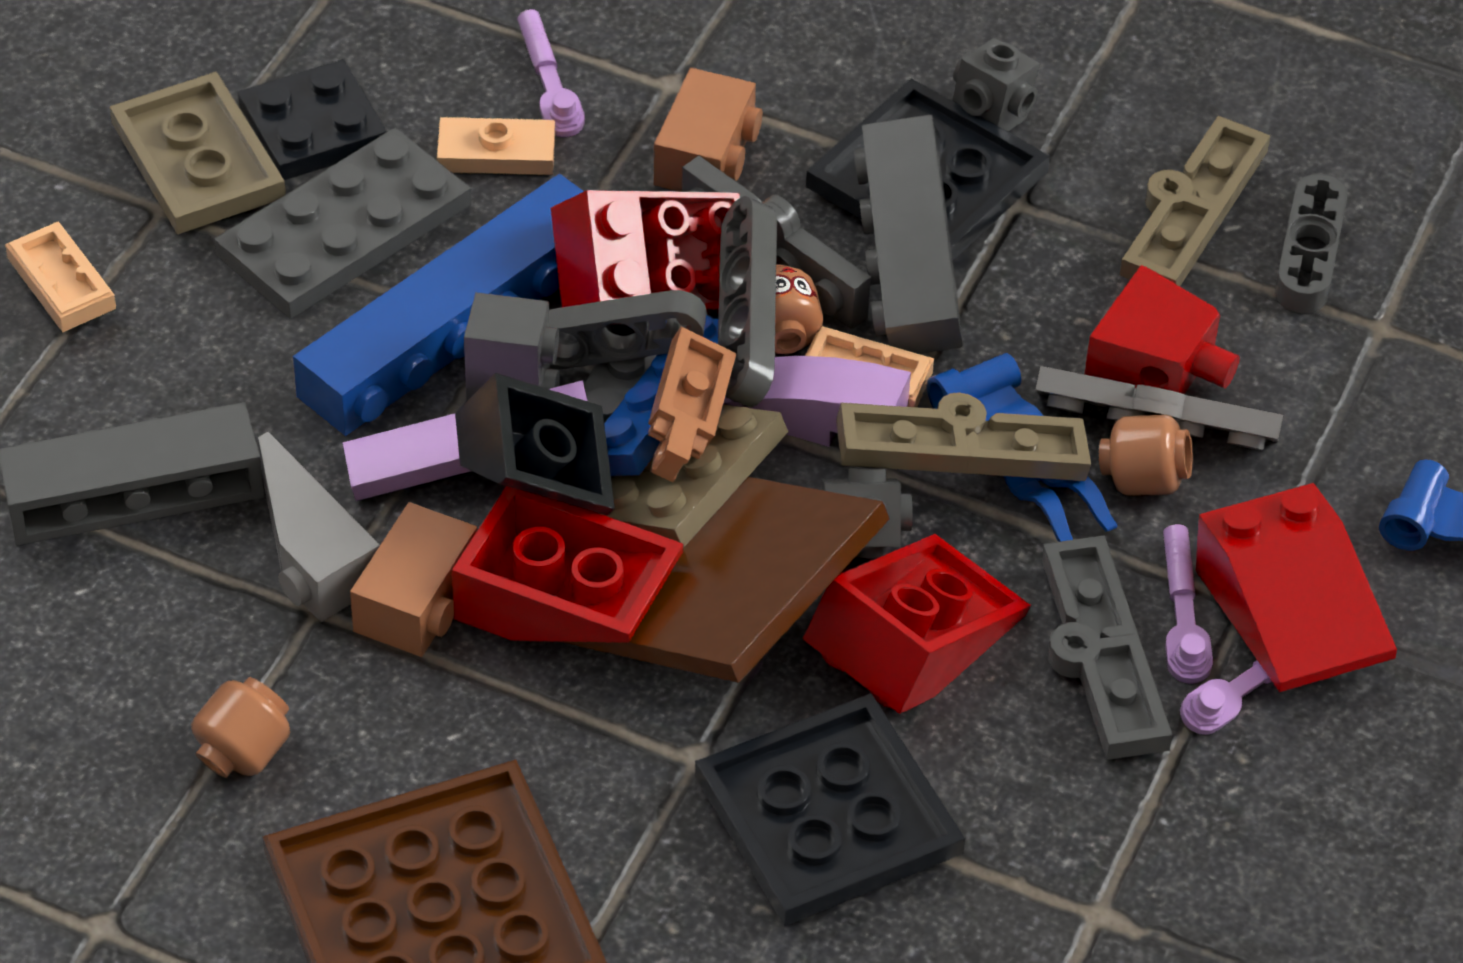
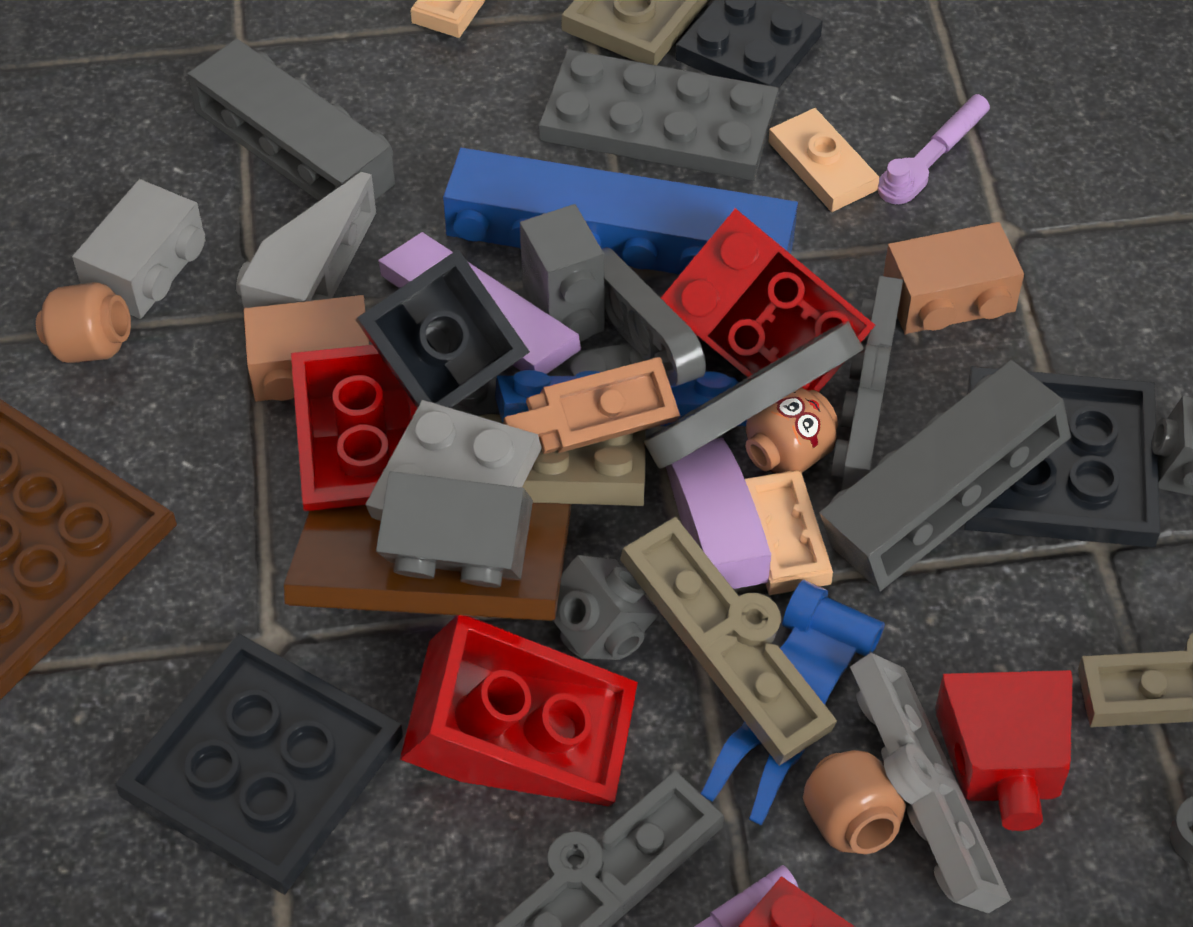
camera: 60 degrees right, 5 degrees up
(181, 644) = (142, 245): none -> light grey brick
(696, 513) = (461, 448): none -> light grey plate
(780, 516) = (454, 528): none -> dark grey brick

